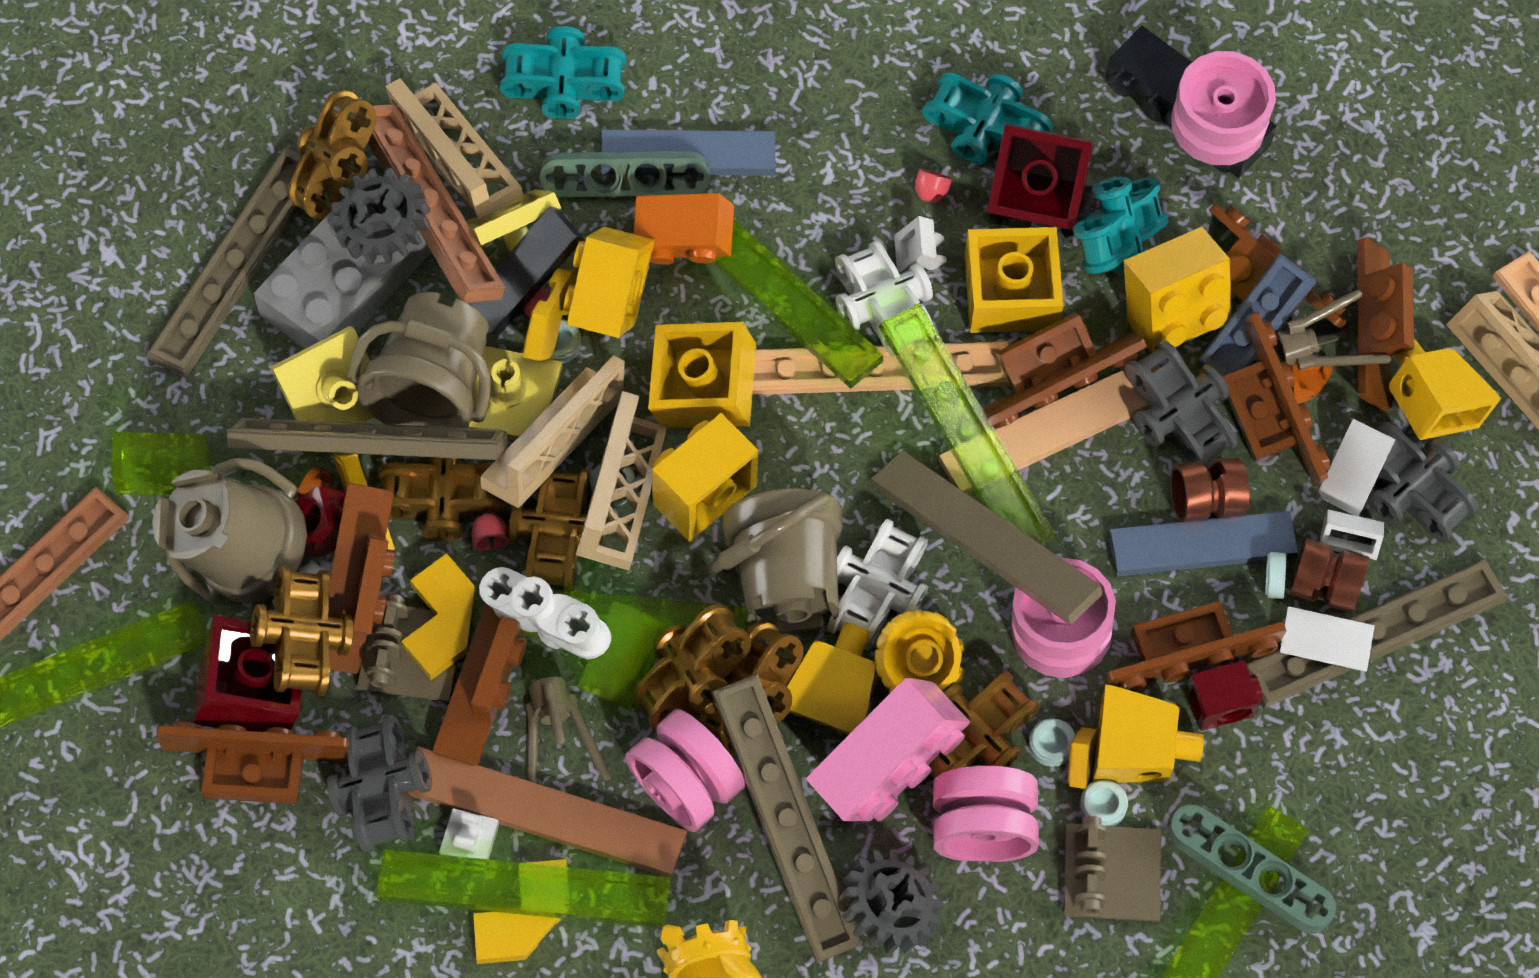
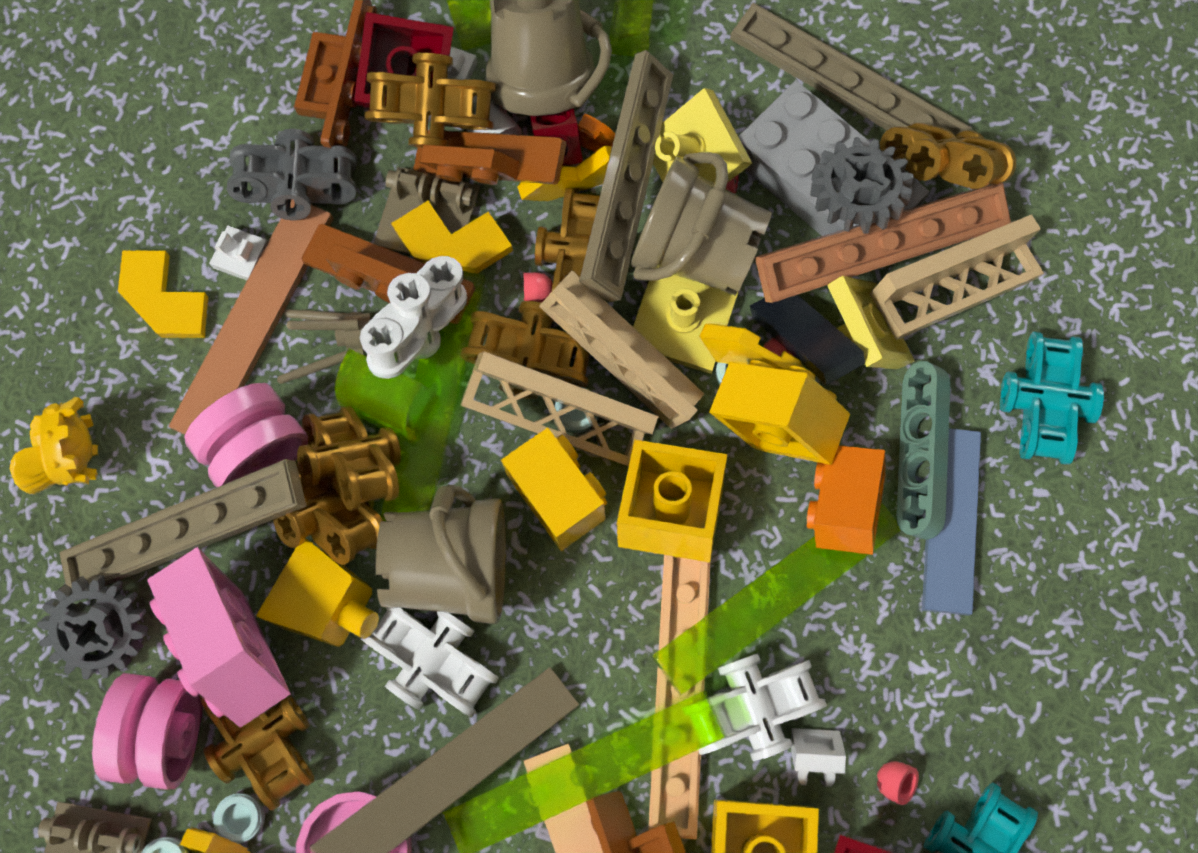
camera: 105 degrees right, 10 degrees up
(524, 888) = (172, 296): clear neon green tile -> none
(921, 648) = (333, 684): yellow hair -> none

